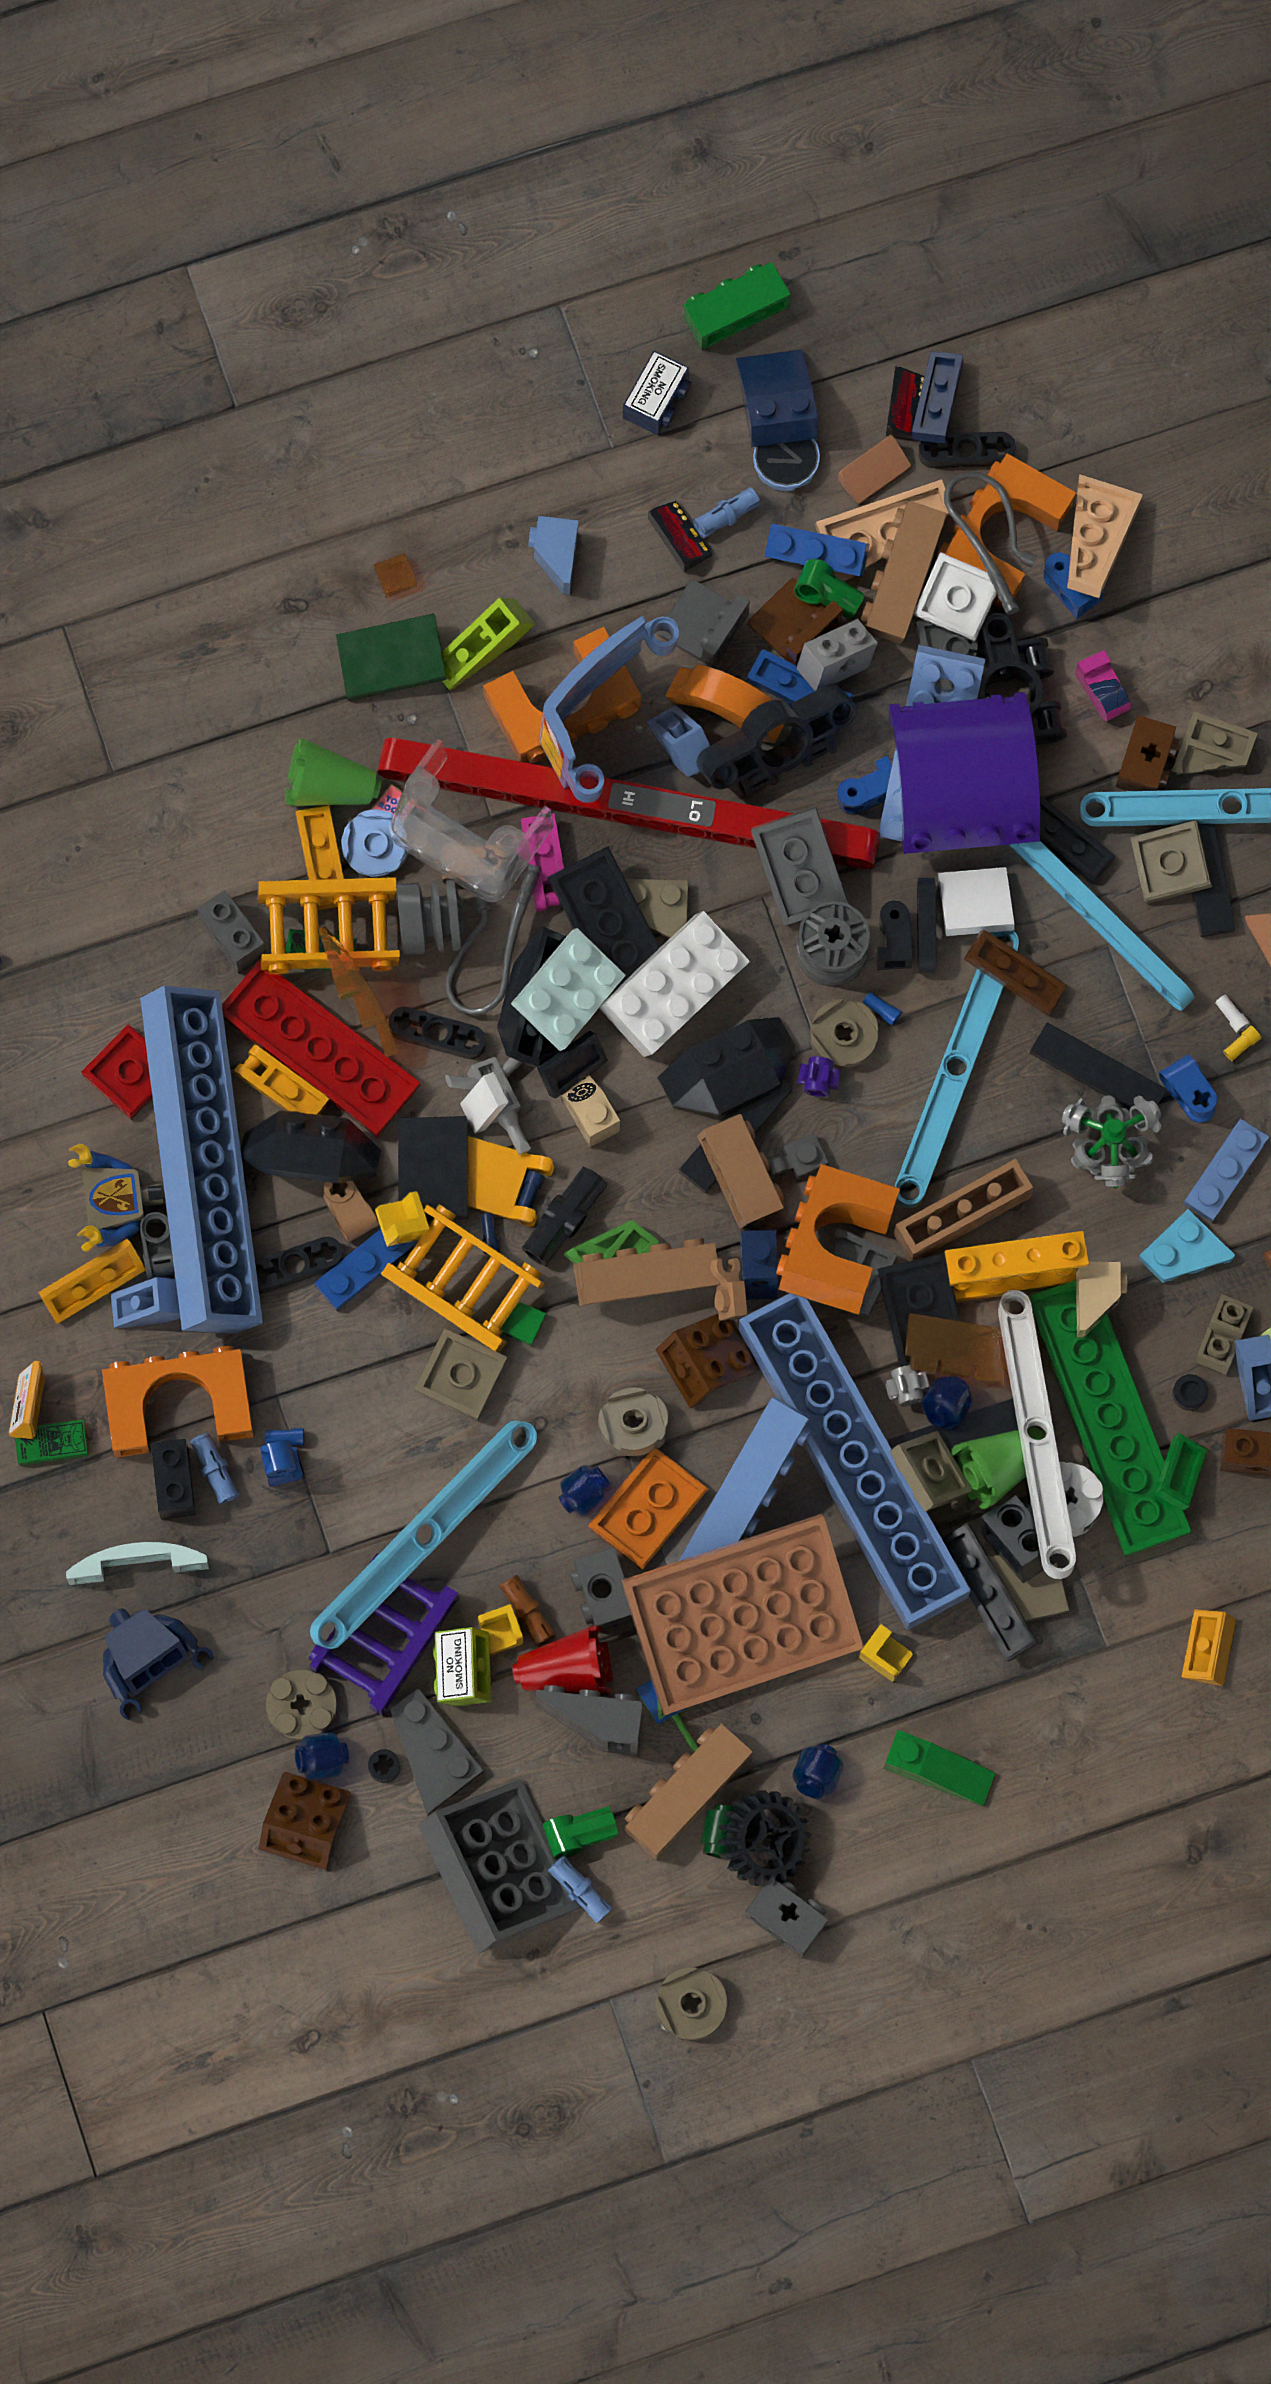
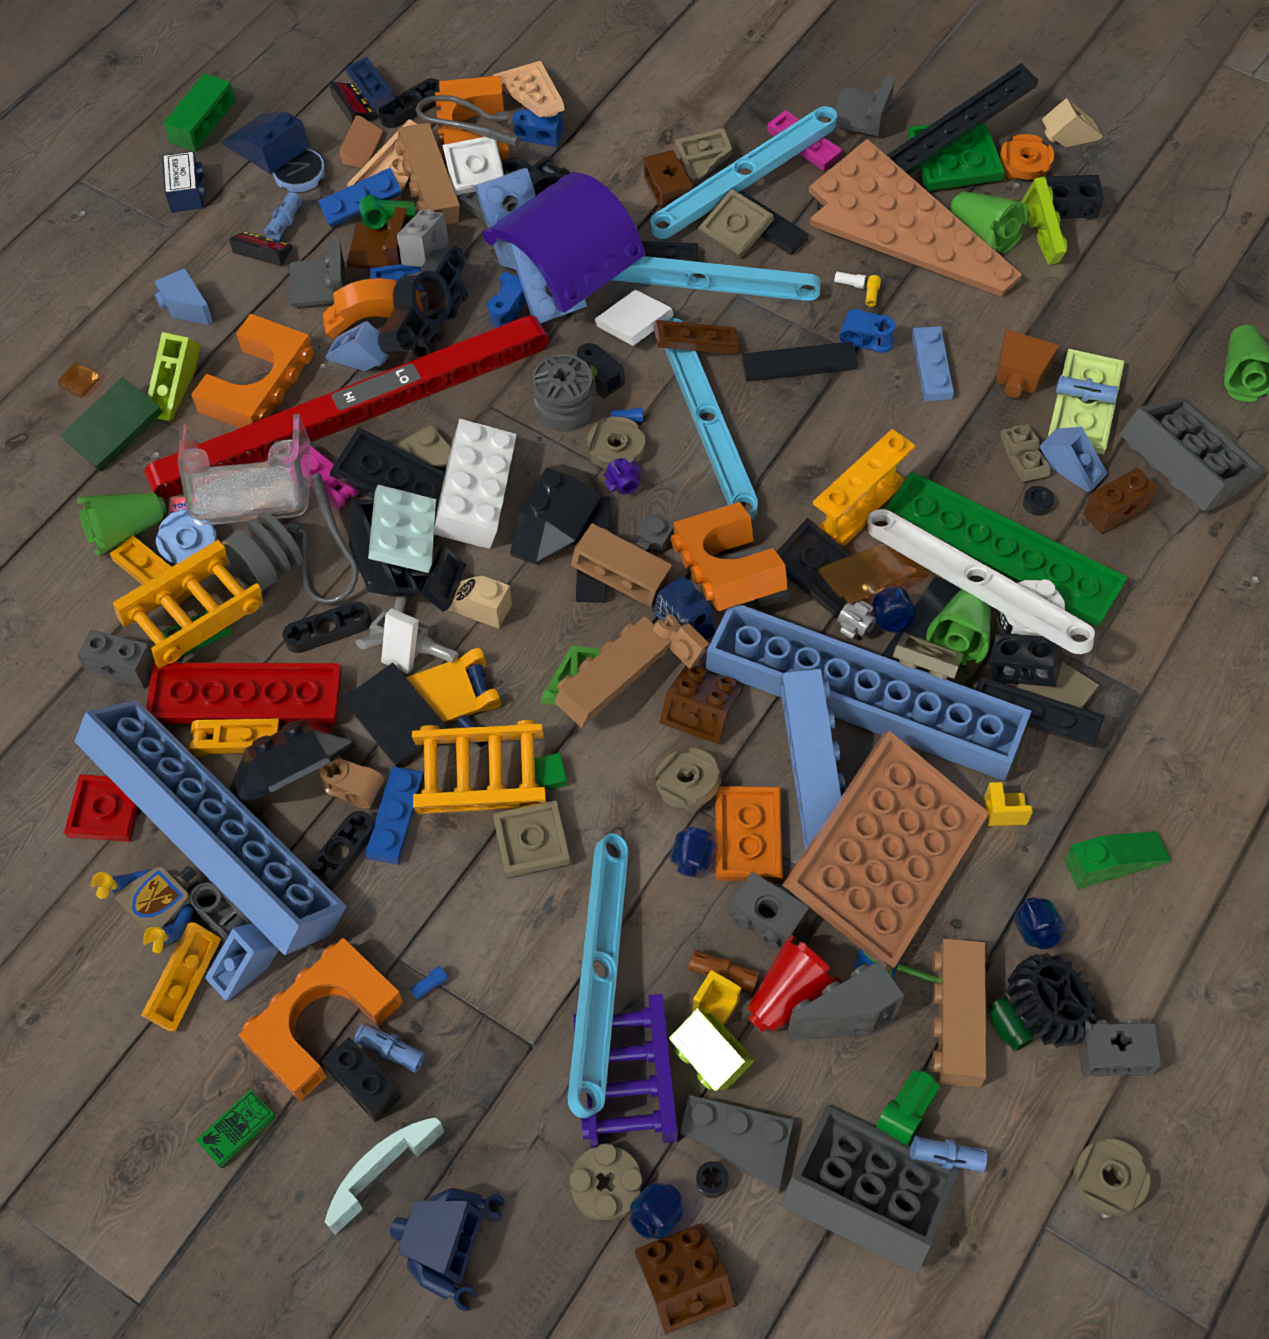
camera: 35 degrees left, 15 degrees down
(27, 1402) = (192, 1108): light orange slope -> none
(281, 1463) = (440, 1002): blue leg -> none
(353, 983) = (232, 620): clear orange slope -> none
(402, 1220) = (402, 759): yellow panel -> none
(564, 1216) = (519, 678): black piece -> none
(581, 682) = (270, 368): medium blue panel -> none
(798, 864) = (498, 361): dark grey plate -> none
(926, 925) = (606, 339): black beam -> none
(963, 1210) = (793, 488): medium nougat brick -> none
(1097, 1293) = (927, 474): tan slope -> none
(1102, 686) = (606, 163): dark pink leg -> none
(1109, 1120) = (840, 378): light grey plant -> none
(1181, 1471) = (1085, 545): green tile -> none
(1184, 1249) = (952, 422): medium azure wing -> none
(1209, 1647) = (1207, 643): light orange slope -> none

